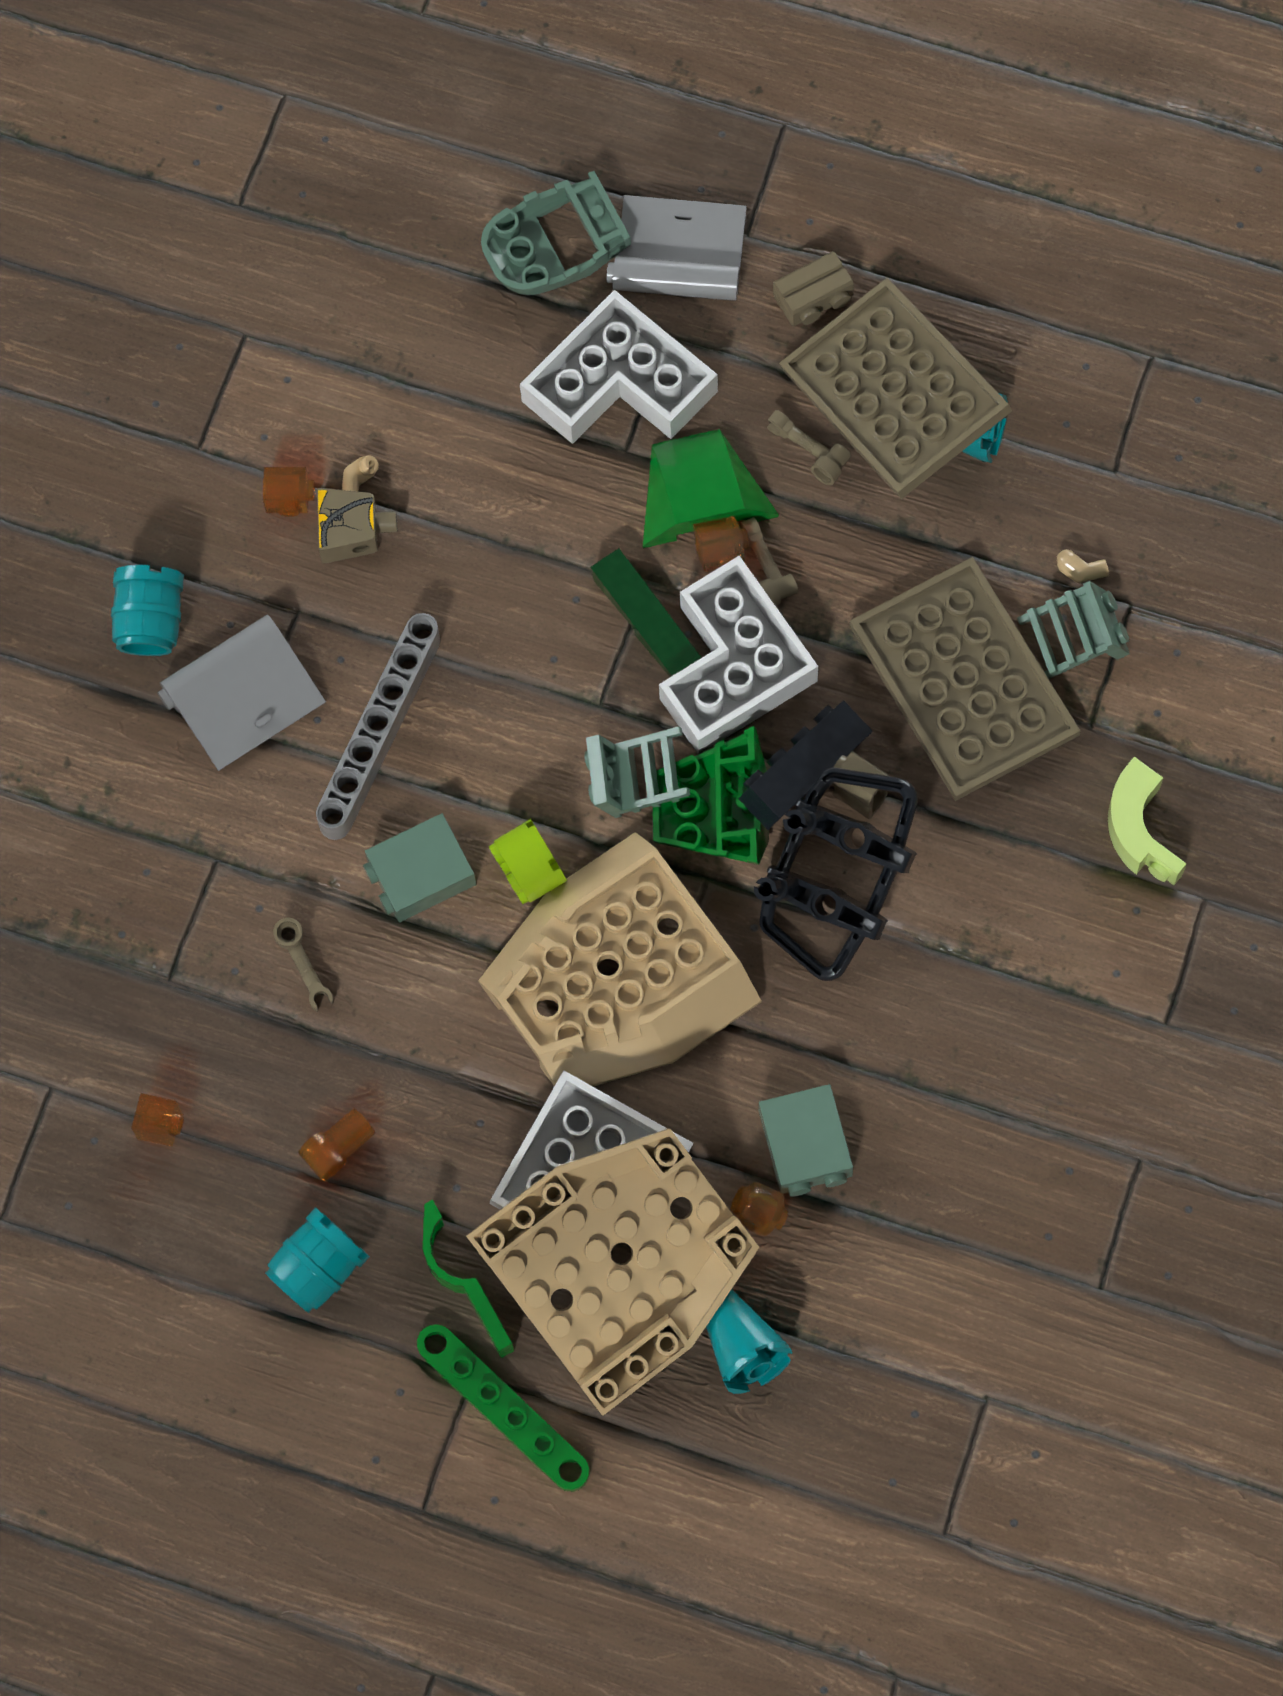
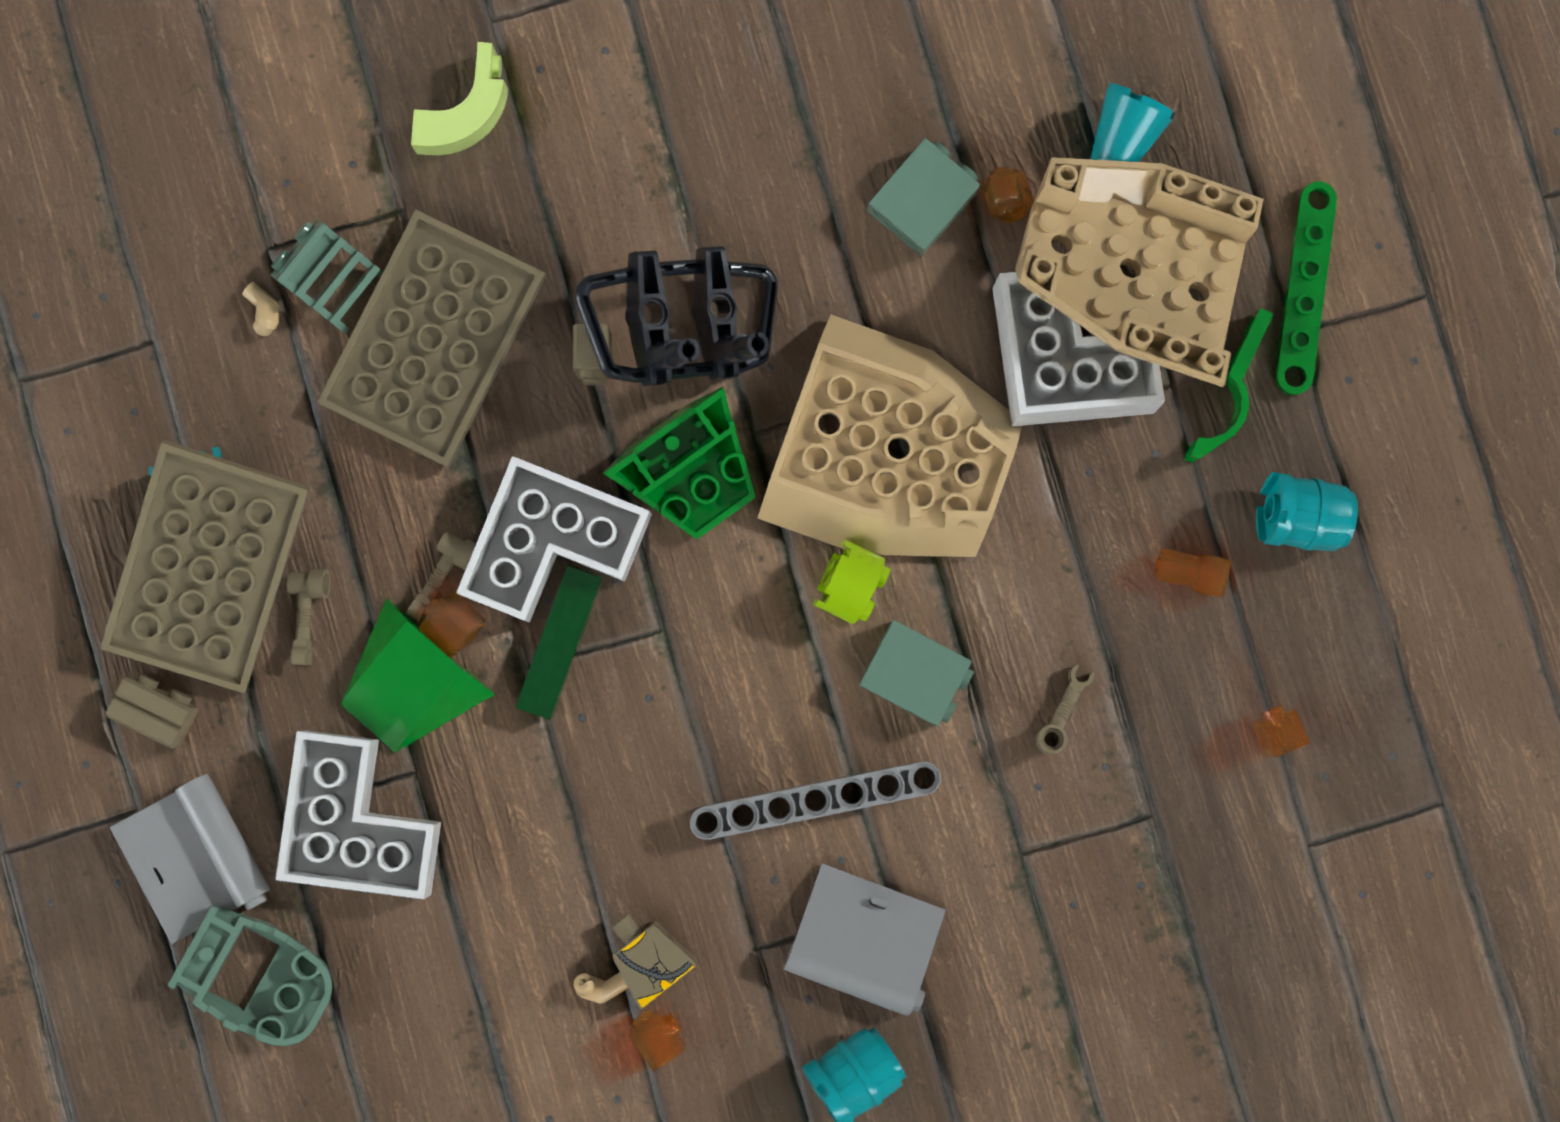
camera: 130 degrees left, 15 degrees up
(615, 774) = (723, 565): sand green plate -> none
(796, 771) = (606, 410): black brick -> none

